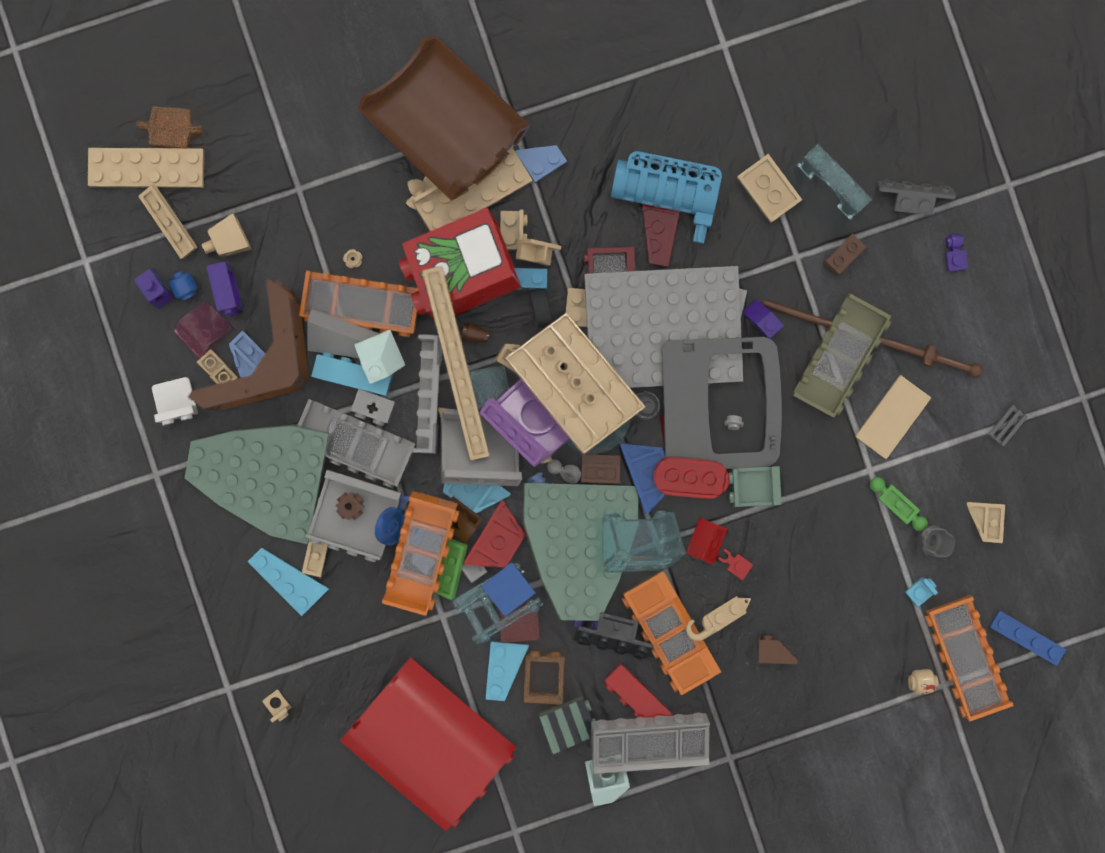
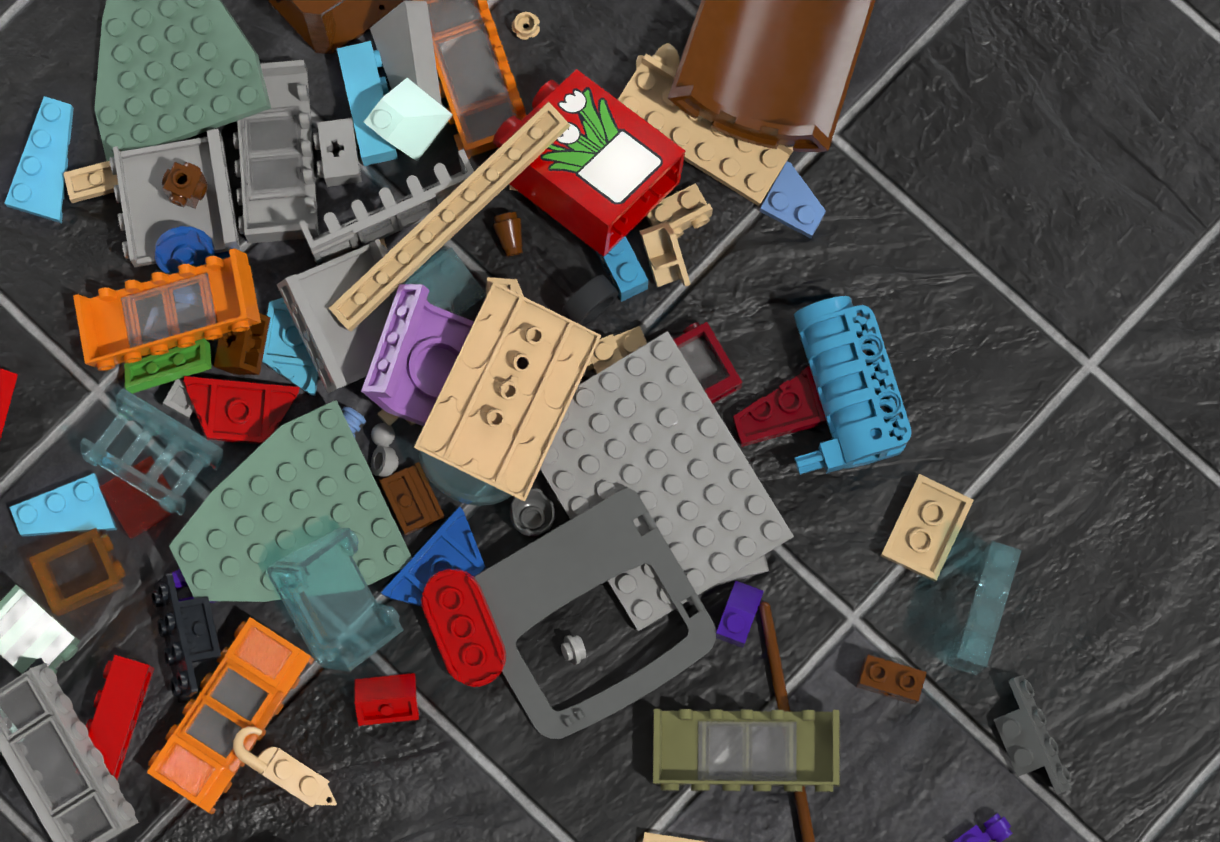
camera: 65 degrees right, 10 degrees down
(508, 589) = (176, 454): blue tile -> none
(738, 565) = (374, 762): red plate -> none
(755, 486) = (498, 725): sand green panel -> none

